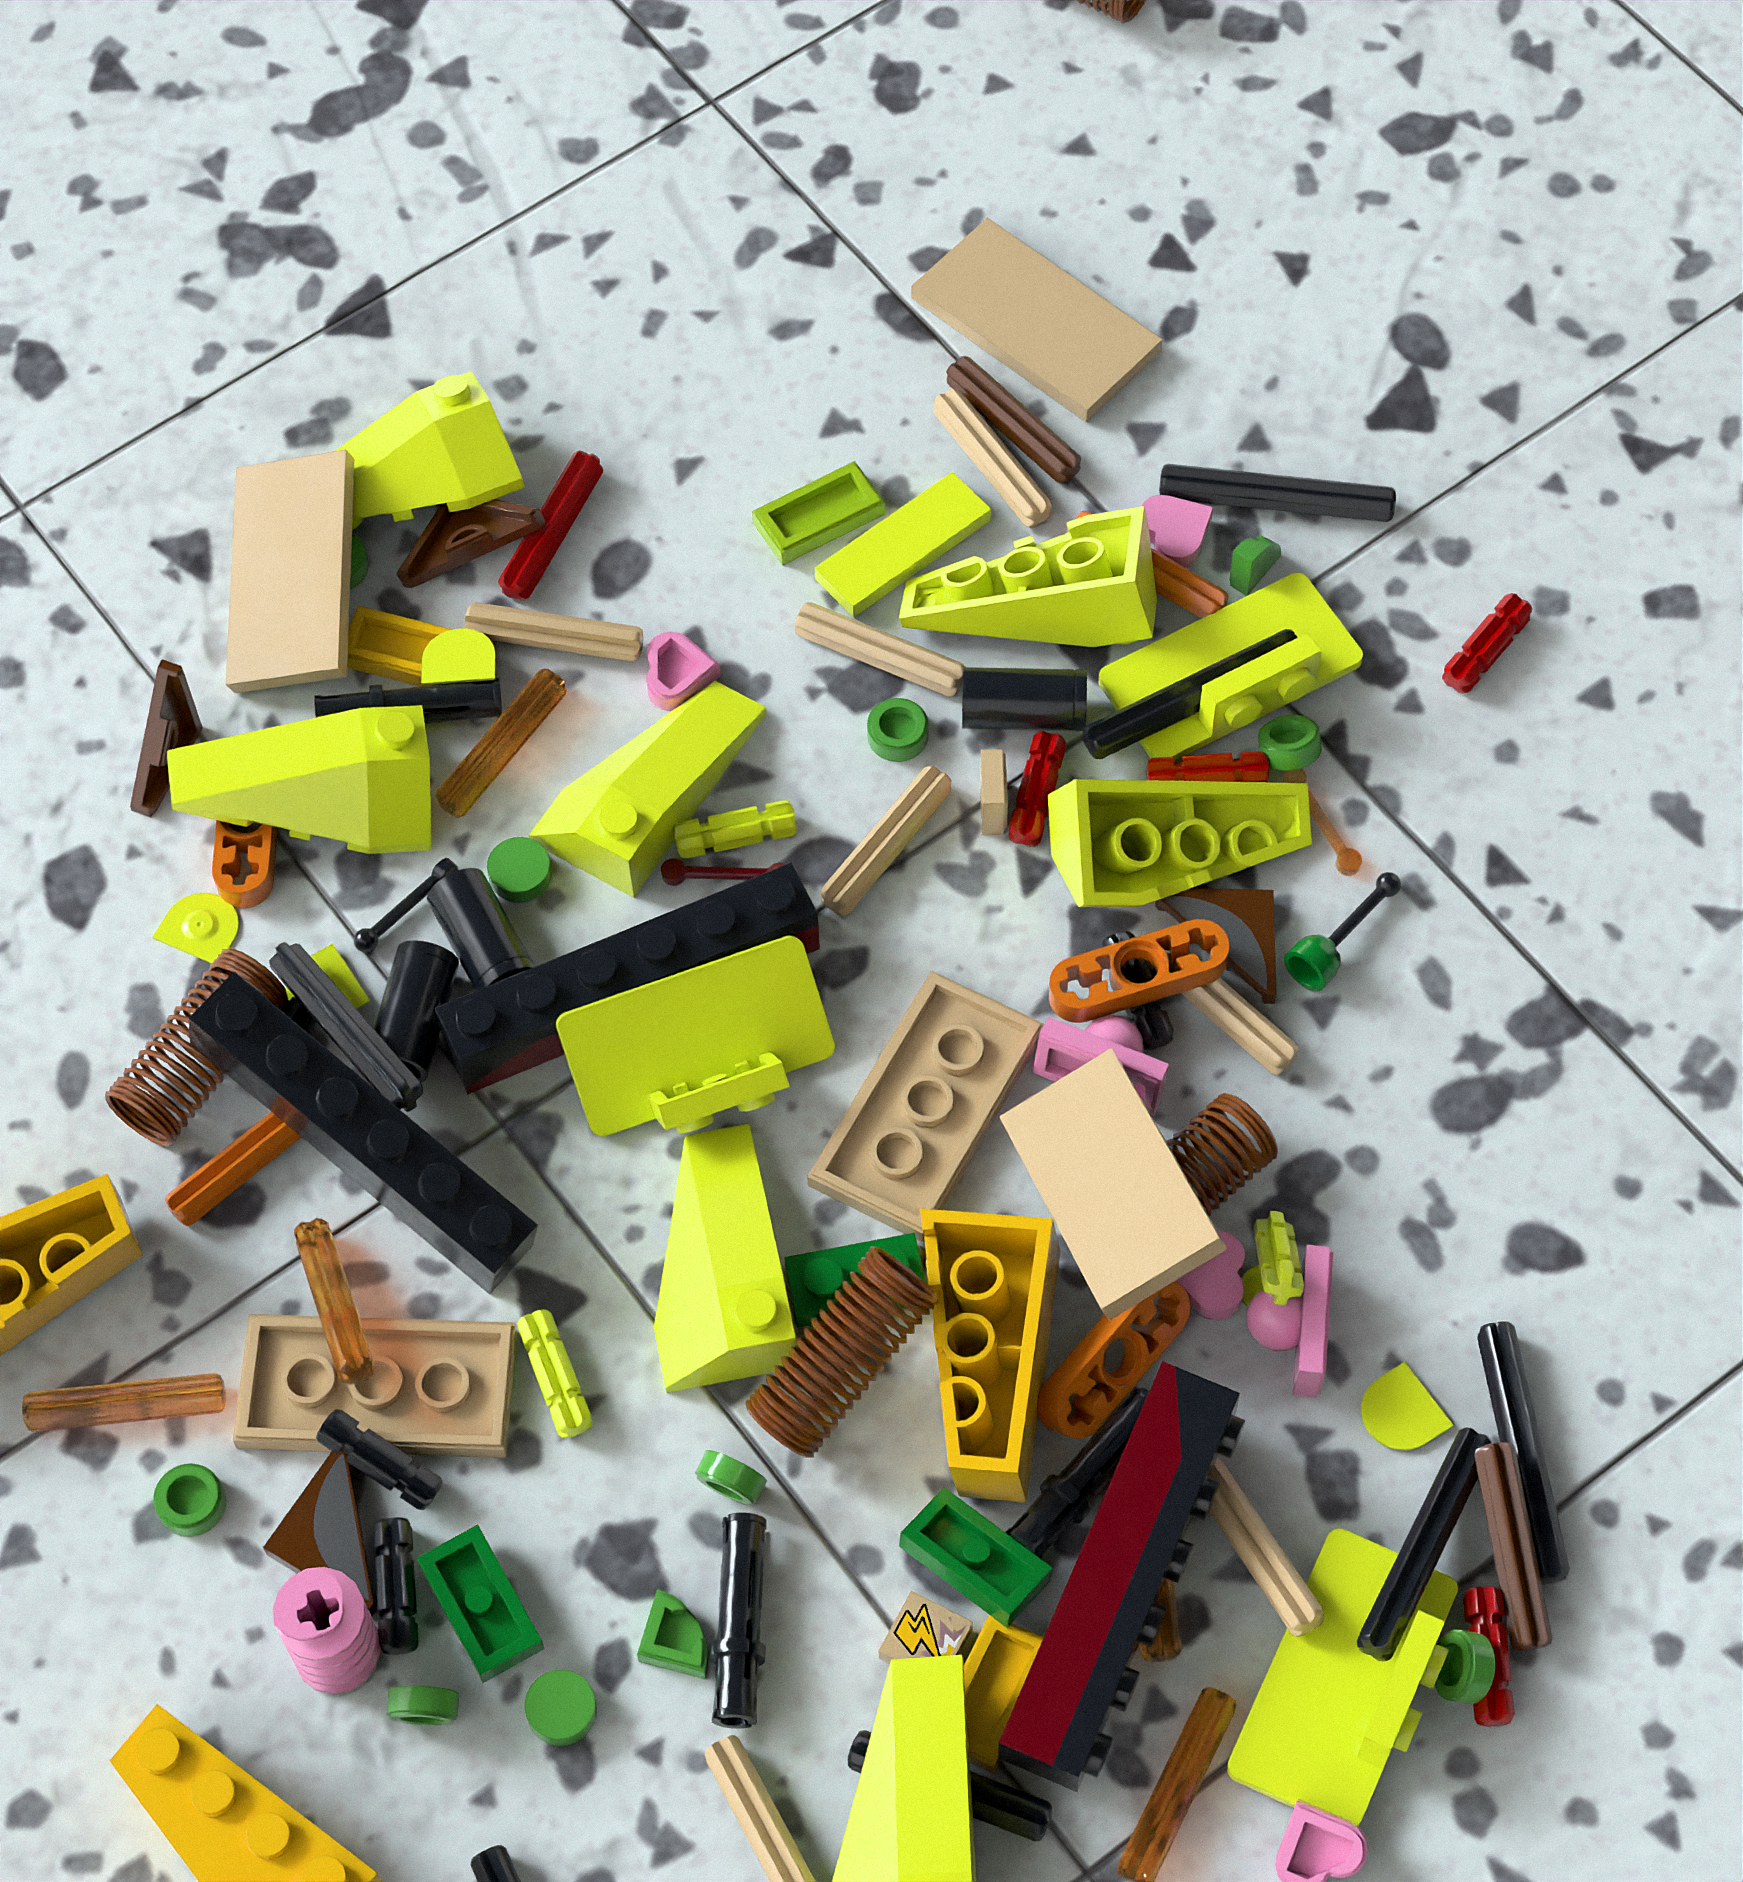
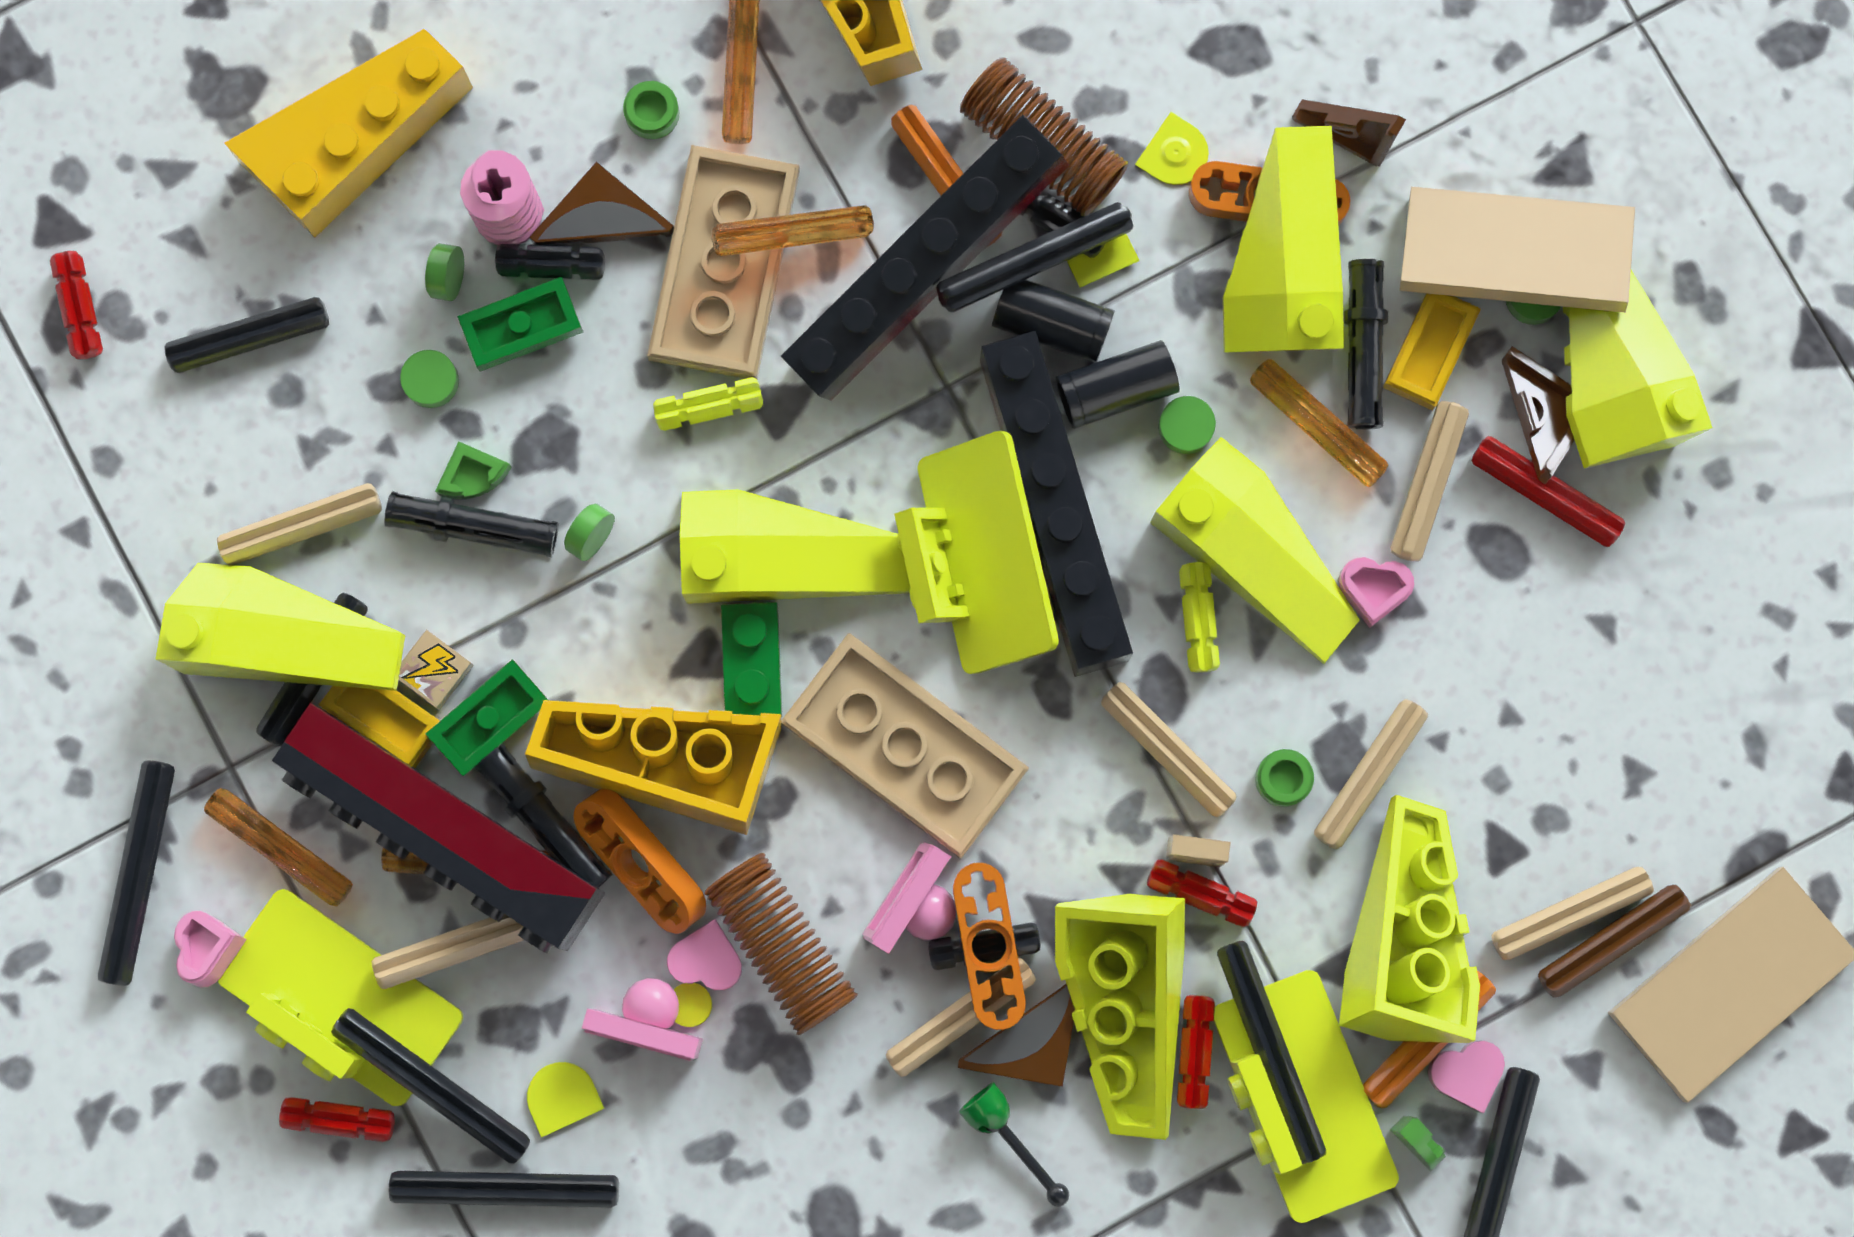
camera: 95 degrees right, 20 degrees up
(367, 939) = (1138, 289): black hinge -> none
(379, 1459) = (650, 255): black axle -> none
(458, 657) = (1407, 391): neon yellow piece -> none
(675, 872) = (1166, 560): dark red hinge -> none
(818, 512) = (1532, 740): lime tile -> none
(858, 1316) = (689, 666): dark orange piece -> none
(902, 544) = (1486, 814): neon yellow tile -> none
(1024, 699) = (1292, 895): black pin -> none
(1112, 1184) = (770, 878): tan tile -> none
(1278, 1258) = (696, 1014): neon yellow axle -> none
(1290, 742) = (1214, 1133): bright green tile -> none
(1348, 859) = (1090, 1163): clear orange hinge -> none
(1467, 1667) = (324, 1098): bright green tile -> none
(1513, 1546) = (417, 1159): reddish brown axle -> none

